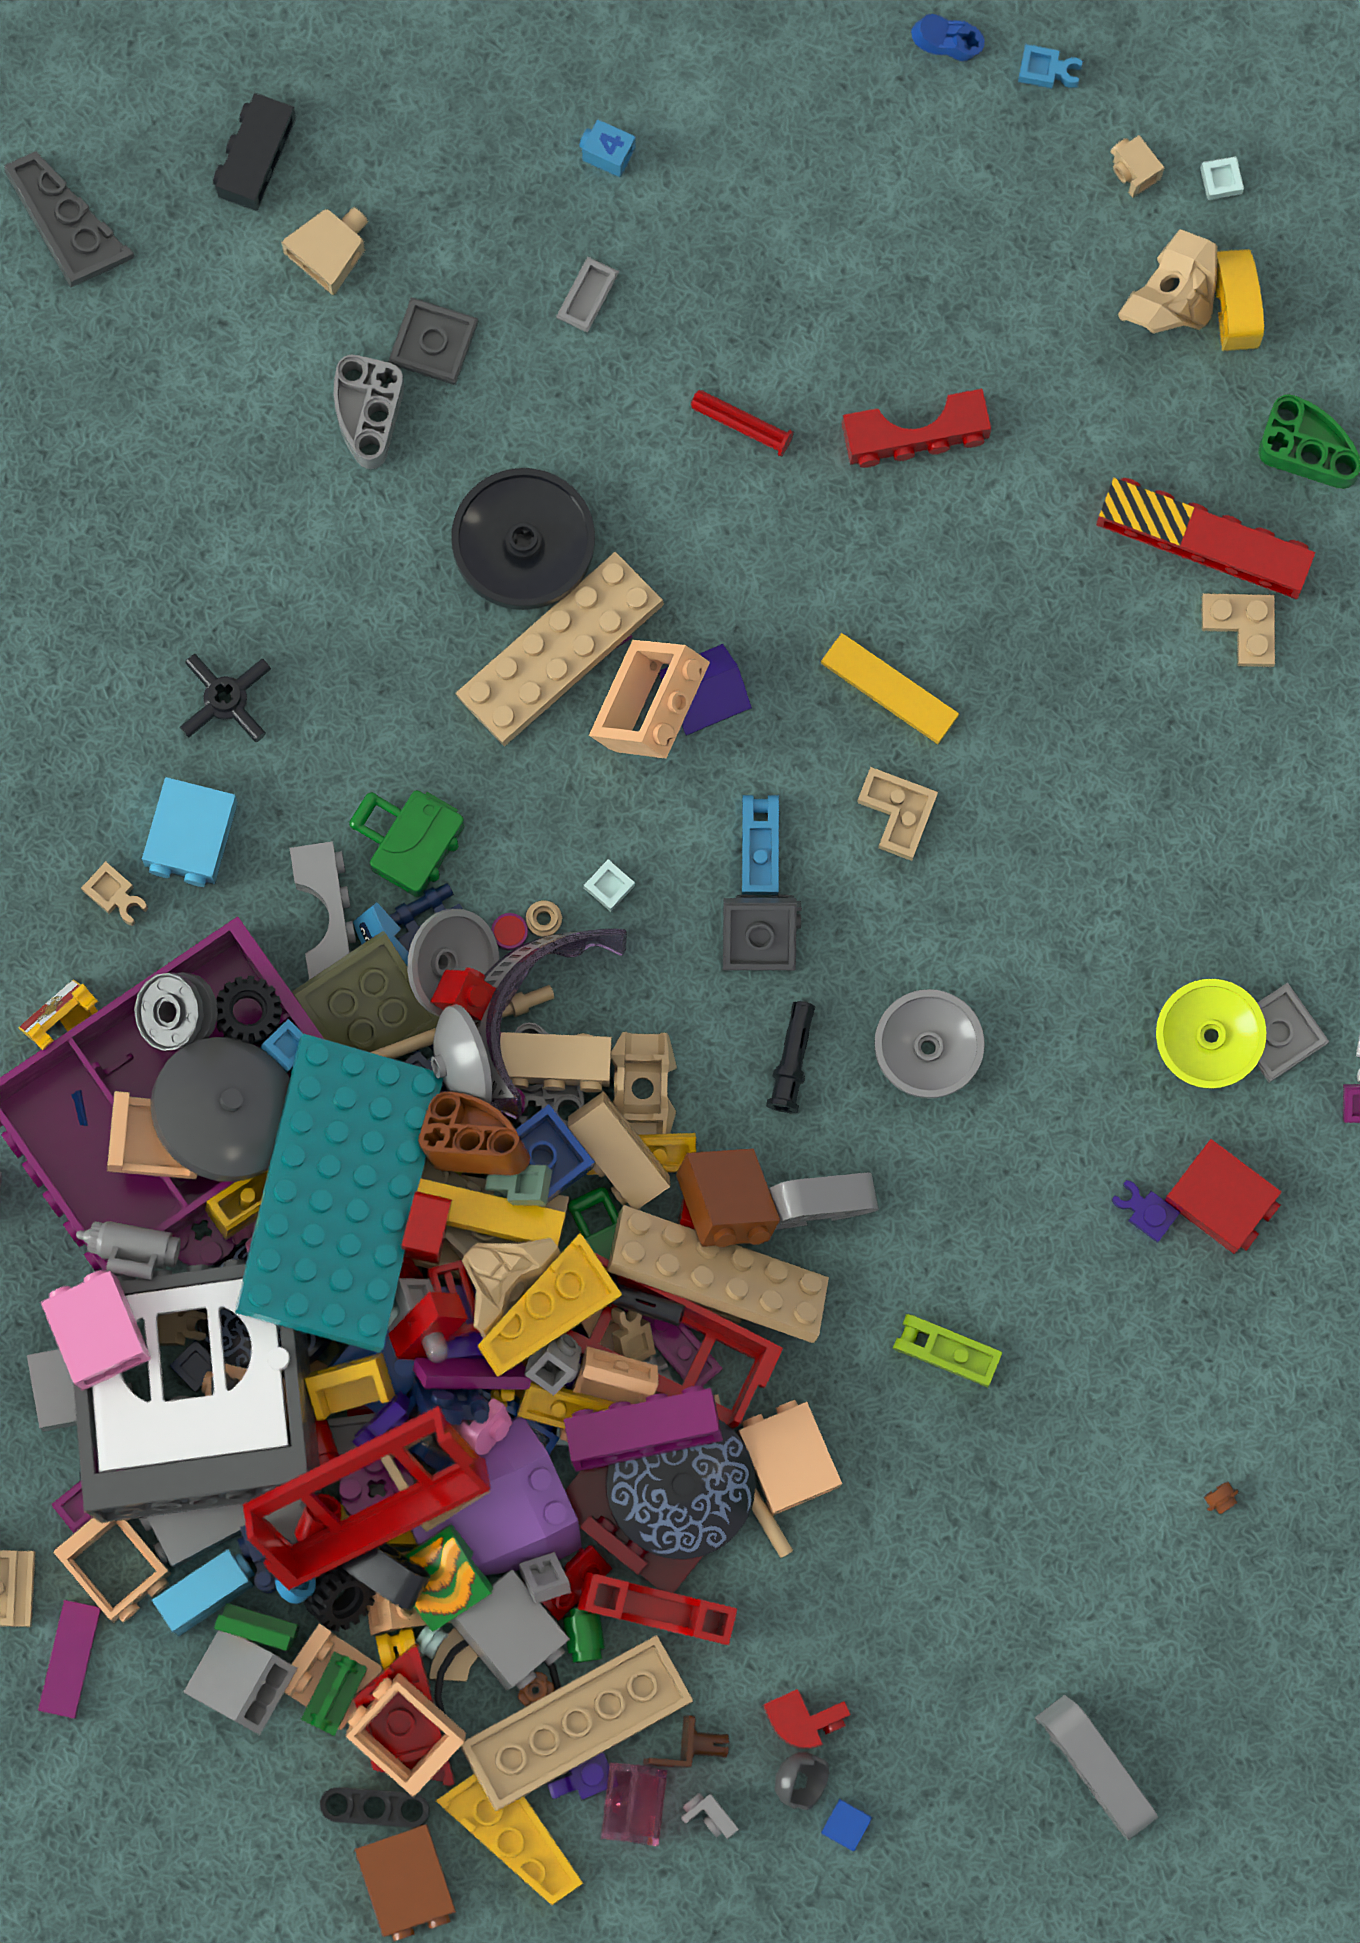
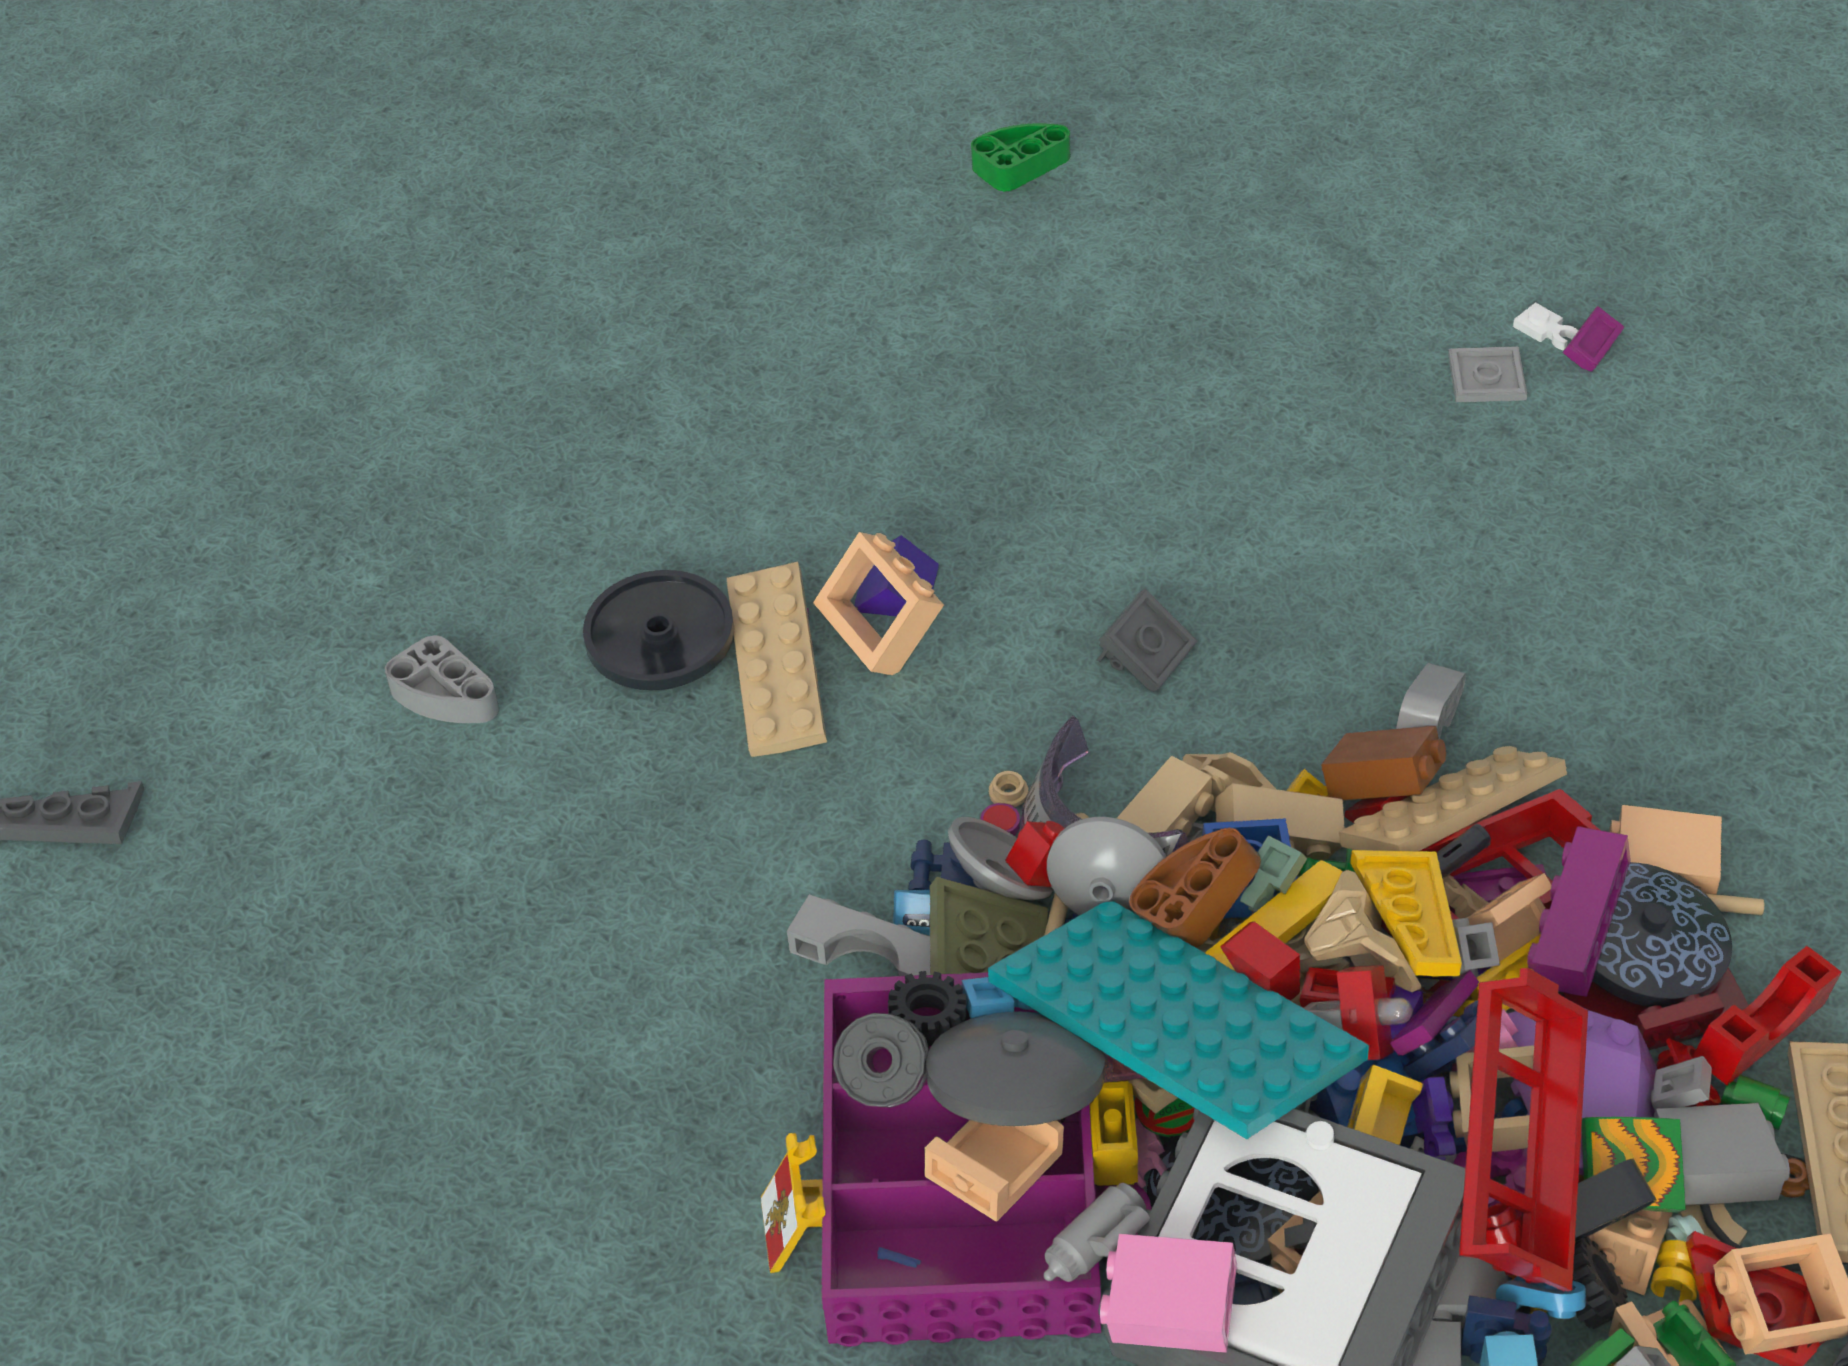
camera: 50 degrees left, 30 degrees down
(111, 890) = (701, 1110): tan plate -> none
(189, 832) = (701, 1011): medium azure brick -> none
(233, 709) = (600, 918): black bar -> none
(254, 151) = (148, 650): black brick -> none
(327, 247) = (279, 643): tan torso -> none
(415, 842) = (858, 842): green piece -> none
(433, 341) = (428, 613): dark grey tile -> none
(587, 294) = (494, 501): light grey tile -> none
(607, 147) = (390, 428): dark azure brick -> none
(609, 885) = (1017, 727): light aqua plate -> none
(742, 421) = (693, 456): red axle -> none
(760, 846) = (1064, 609): dark azure plate -> none
(789, 1074) = (1291, 685): black pin -> none
(873, 437) = (785, 380): red arch -> none
(889, 688) = (999, 471): yellow tile -> none
(907, 806) = (1113, 502): tan plate -> none
(936, 1019) = (1342, 560): light grey dish -> none
(947, 37) = (515, 206): blue piece -> none
(948, 1350) = (1632, 697): lime plate -> none
(1042, 66) = (593, 168): dark azure plate -> none
(1136, 164) = (717, 149): tan brick -> none
(1150, 1214) = (1591, 514): dark purple plate -> none
(1191, 303) = (820, 142): tan piece -> none
(1206, 538) = (1041, 237): red brick -> none
(1209, 1006) = (1464, 385): neon yellow dish -> none
(1222, 178) = (772, 116): light aqua plate -> none
(1224, 1197) = (1611, 459): red brick -> none
(1240, 299) = (877, 135): yellow beam -> none
(1249, 616) = (1126, 245): tan plate -> none

